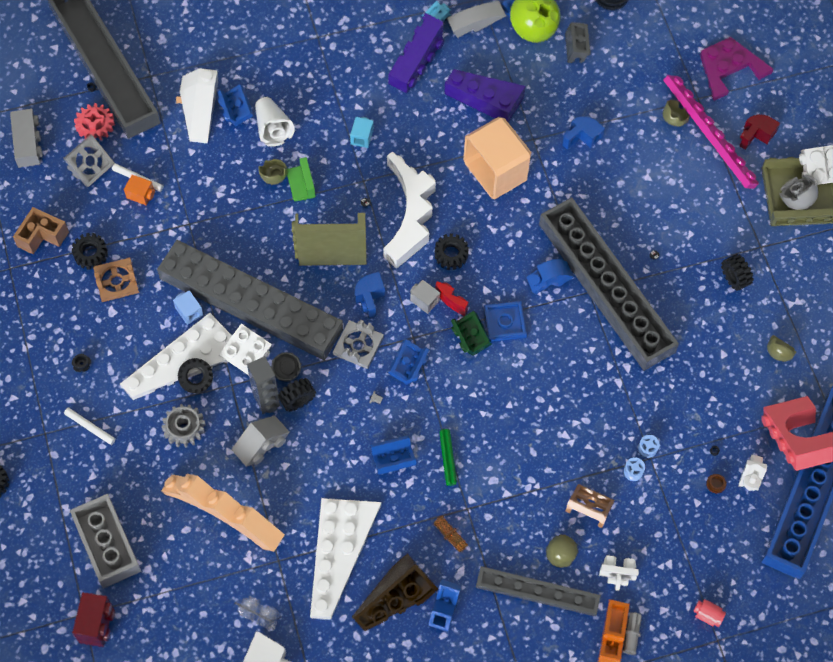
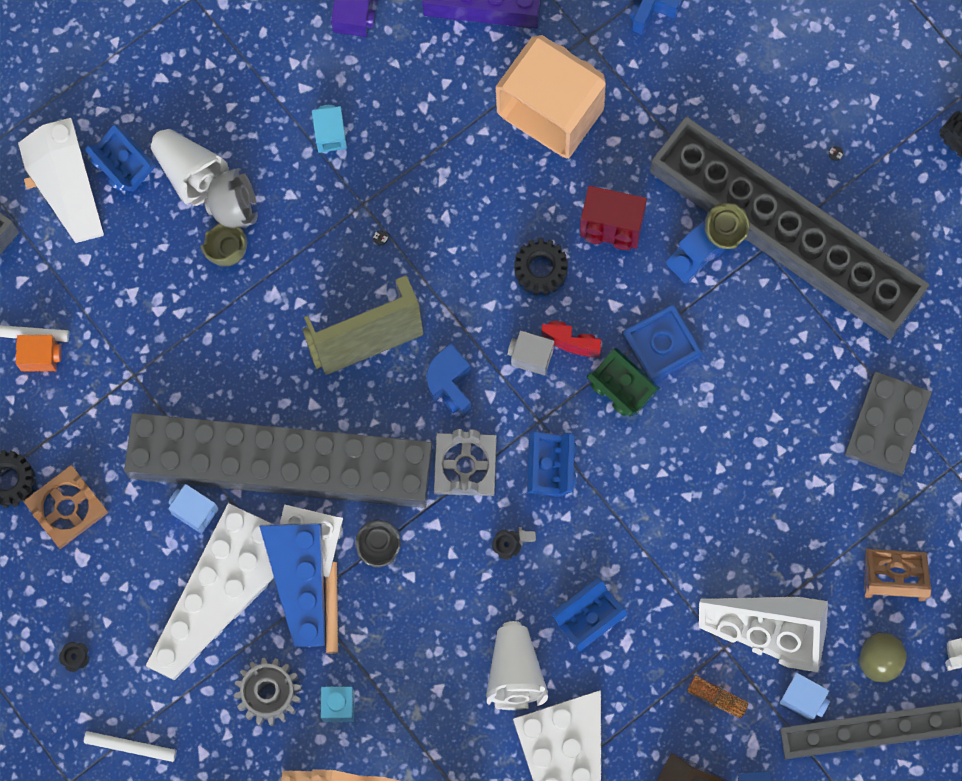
camera: 15 degrees left, 10 degrees up
(195, 387) = (233, 610): black tyre -> none
(220, 448) = (337, 704): none -> medium azure brick
(231, 366) = (298, 572): none -> blue wing
(240, 400) = (331, 611): none -> light nougat bar
(258, 439) = (389, 670): light grey brick -> none
(263, 385) = (364, 592): dark grey brick -> none
(288, 148) = (230, 199): none -> light grey cylinder
(297, 394) = (413, 580): black tyre -> none
(301, 181) = (272, 243): bright green panel -> none
(334, 470) = (515, 670): none -> white cone
(362, 393) = (499, 544): none -> black plate
(412, 233) = (465, 221): white arch -> none
(448, 459) = (666, 584): green axle -> none
(503, 554) = (805, 697): none -> light blue brick
(504, 238) = (612, 218): none -> dark red brick
(505, 508) = (779, 626): none -> white wedge
(569, 263) = (726, 225): none -> olive hair
(622, 417) = (888, 423): none -> dark grey plate
(636, 465) = (938, 489): light blue wheel -> none
(650, 442) = (947, 449): light blue wheel -> none

